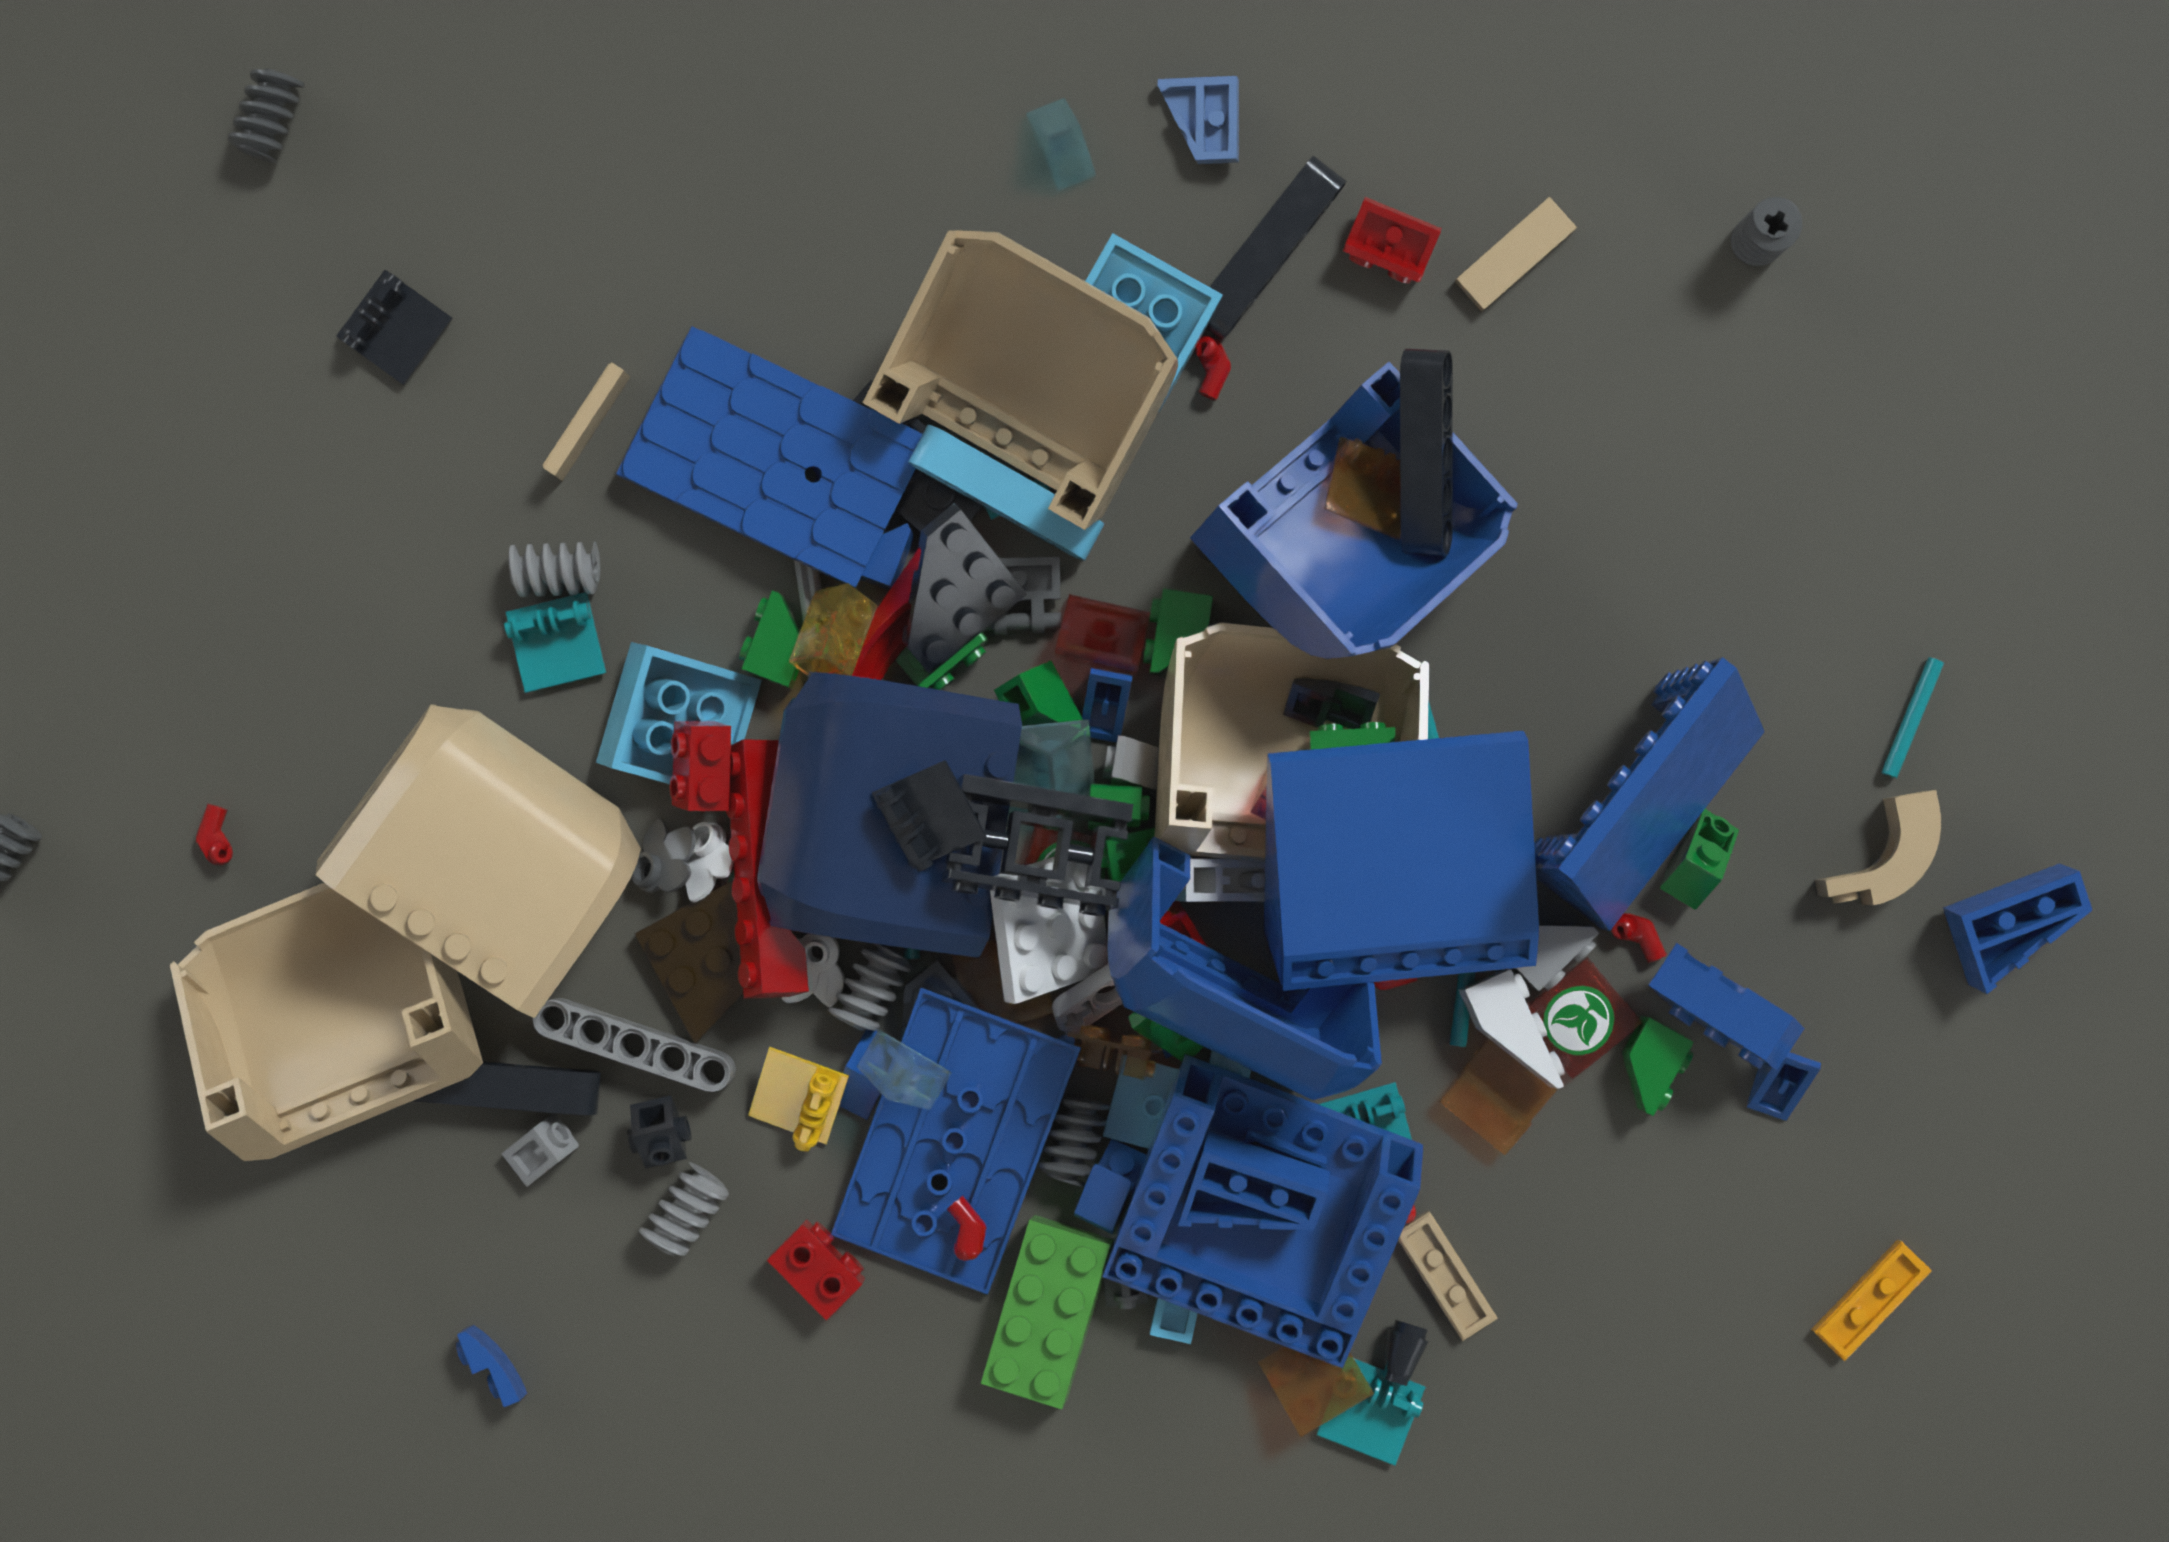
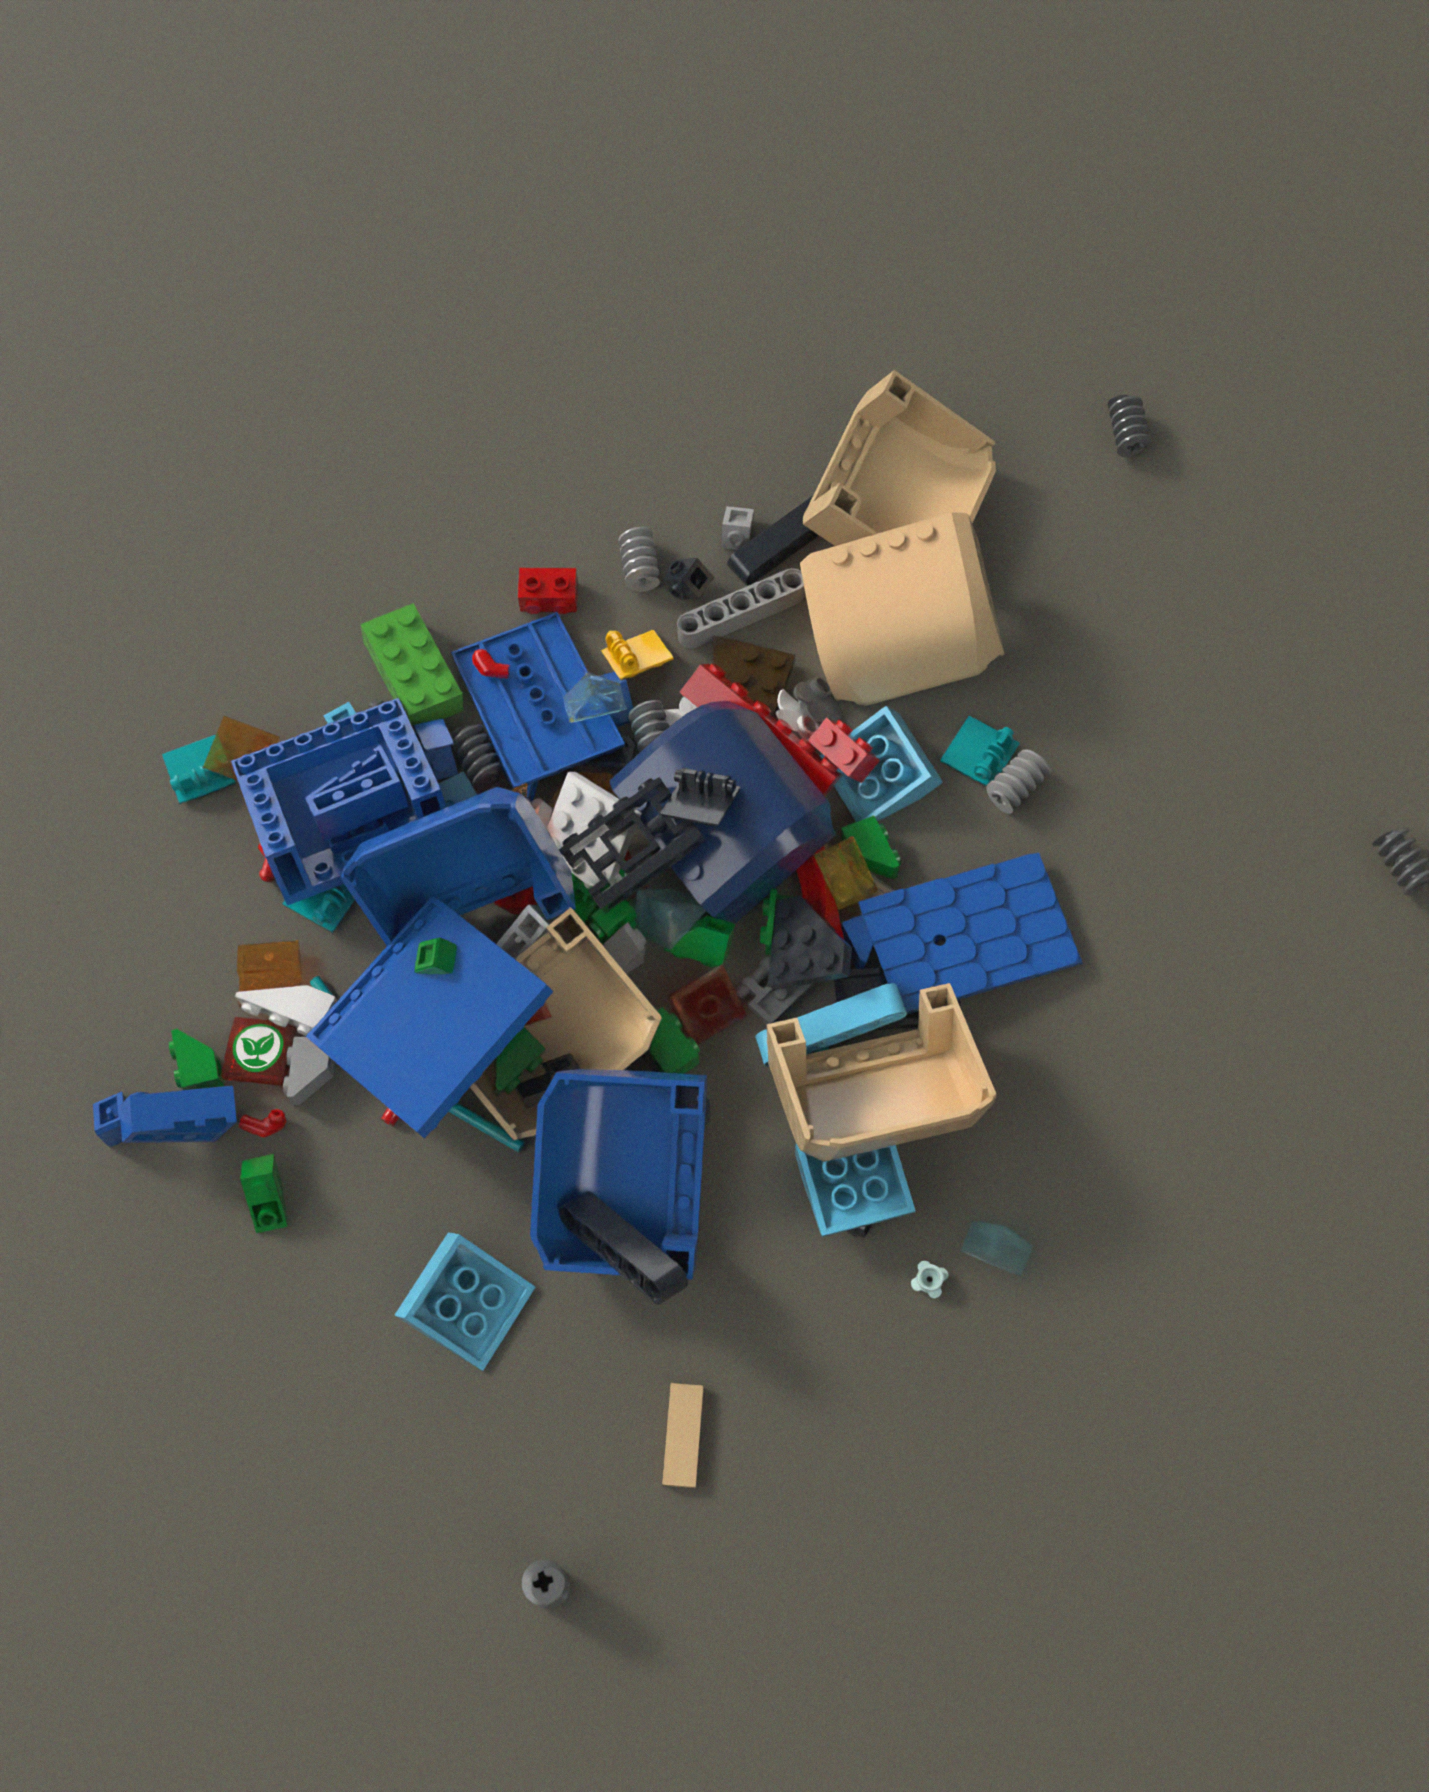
camera: 140 degrees right, 20 degrees down
(211, 837) = (1041, 521): red arm -> none
(394, 327) = (1225, 822): black hinge -> none
(481, 1352) = (668, 424): blue slope -> none
(586, 421) = (1081, 864): tan tile -> none
(1106, 703) = (670, 973): blue slope -> none
(1159, 163) = (928, 1270): none -> light aqua plate
(1206, 115) = (933, 1339): medium blue wing -> none
(1216, 364) = (789, 1208): red arm -> none
(1272, 243) = (825, 1302): black beam -> none
(1348, 907) = (435, 957): none -> green slope
(1366, 487) = (643, 1206): clear orange hinge -> none
(1391, 241) = (760, 1368): red bracket -> none
(1403, 1351) = (206, 807): black cone -> none
(1446, 1276) = (217, 864): tan tile -> none
(1604, 569) = (465, 1300): none -> medium azure slope
(1656, 798) = (315, 1134): blue slope -> none
(1910, 849) = (143, 1298): tan arch -> none
(1912, 717) = (206, 1389): teal bar -> none
(2013, 921) = (46, 1323): blue wedge -> none

